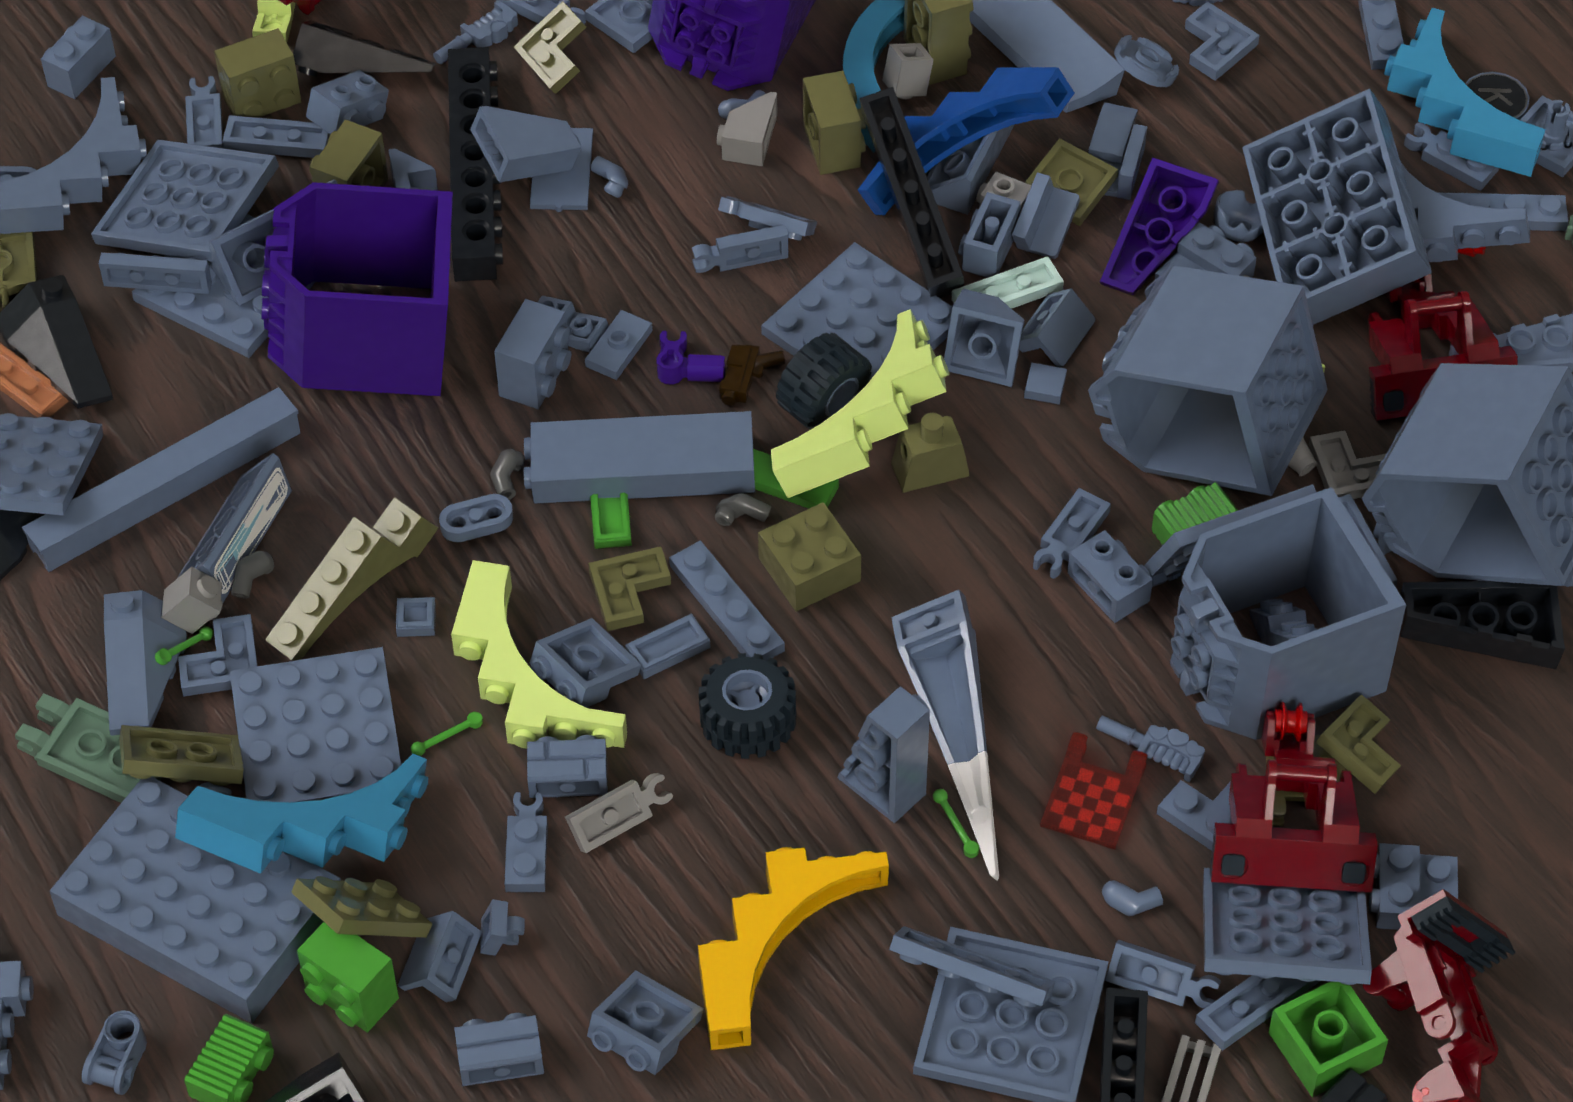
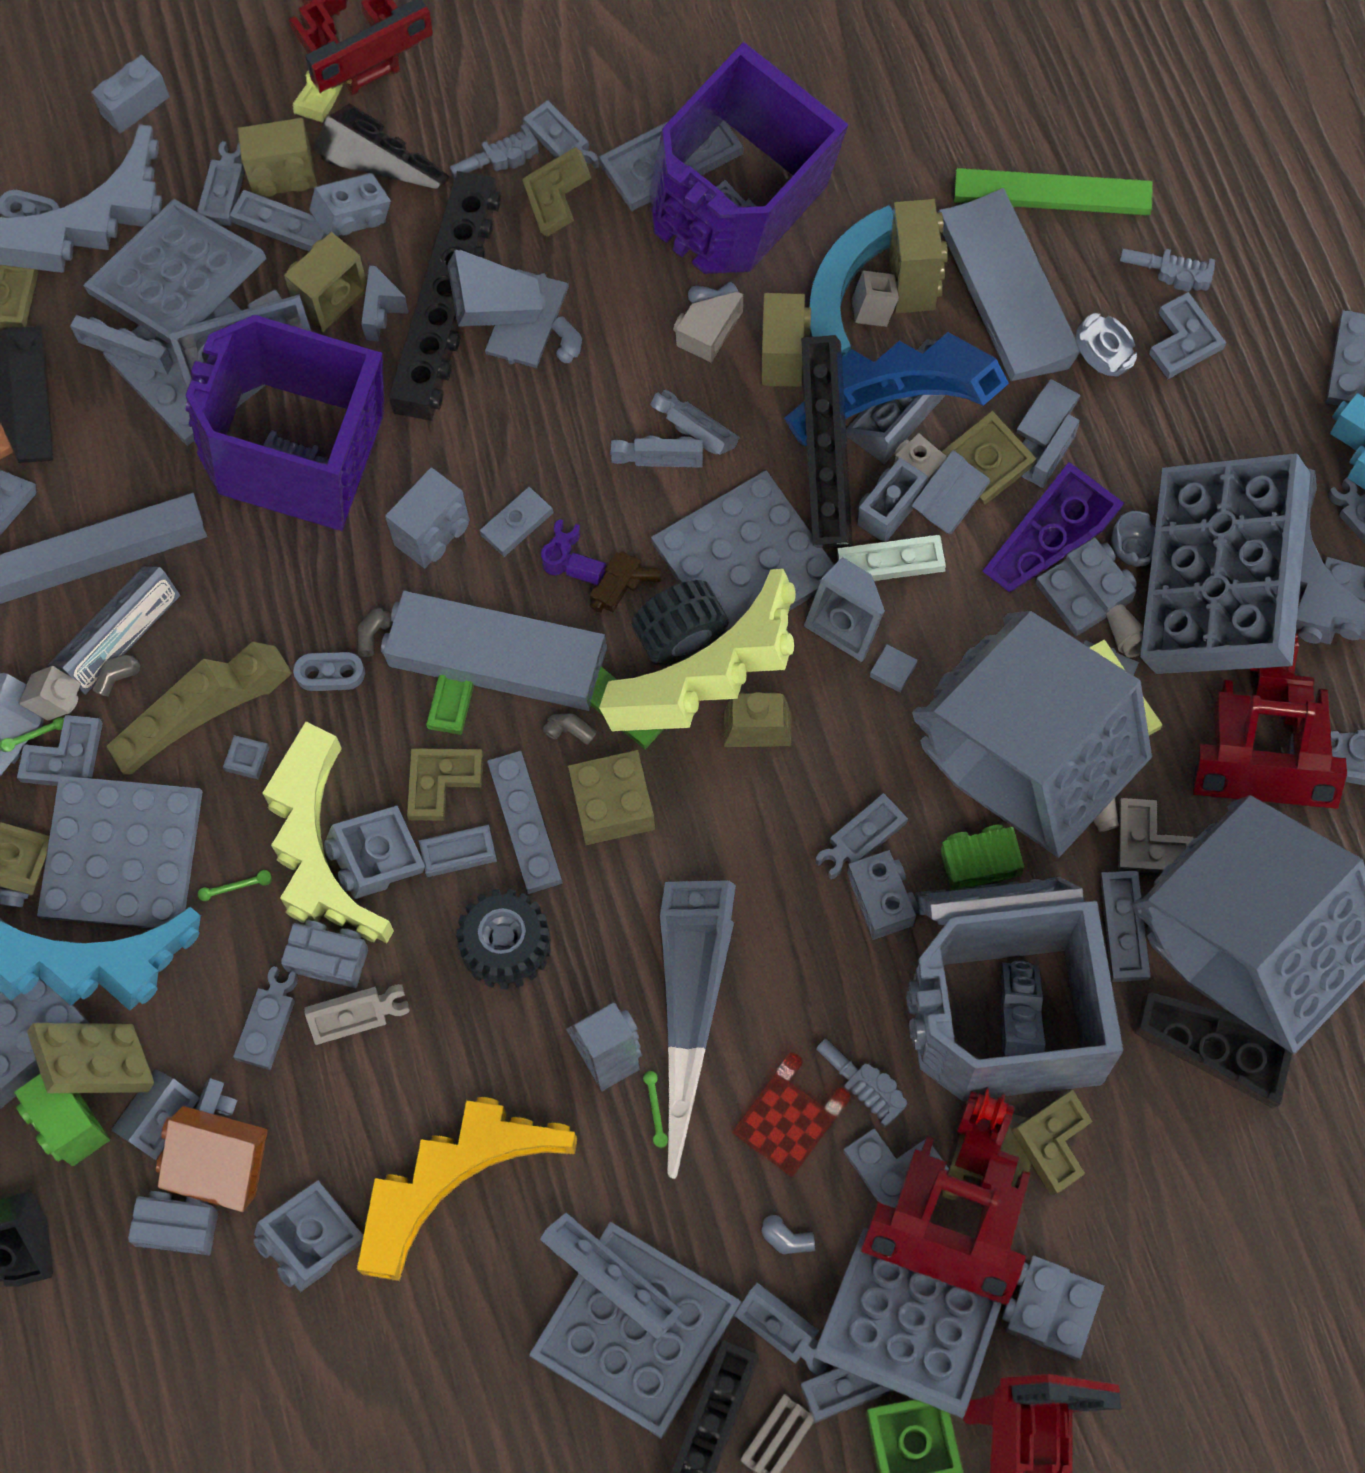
camera: 20 degrees right, 15 degrees up
(519, 972) = (211, 1158): none -> brick
(584, 328) = (478, 488): sand blue slope -> none
(1057, 326) = (923, 611): sand blue panel -> none

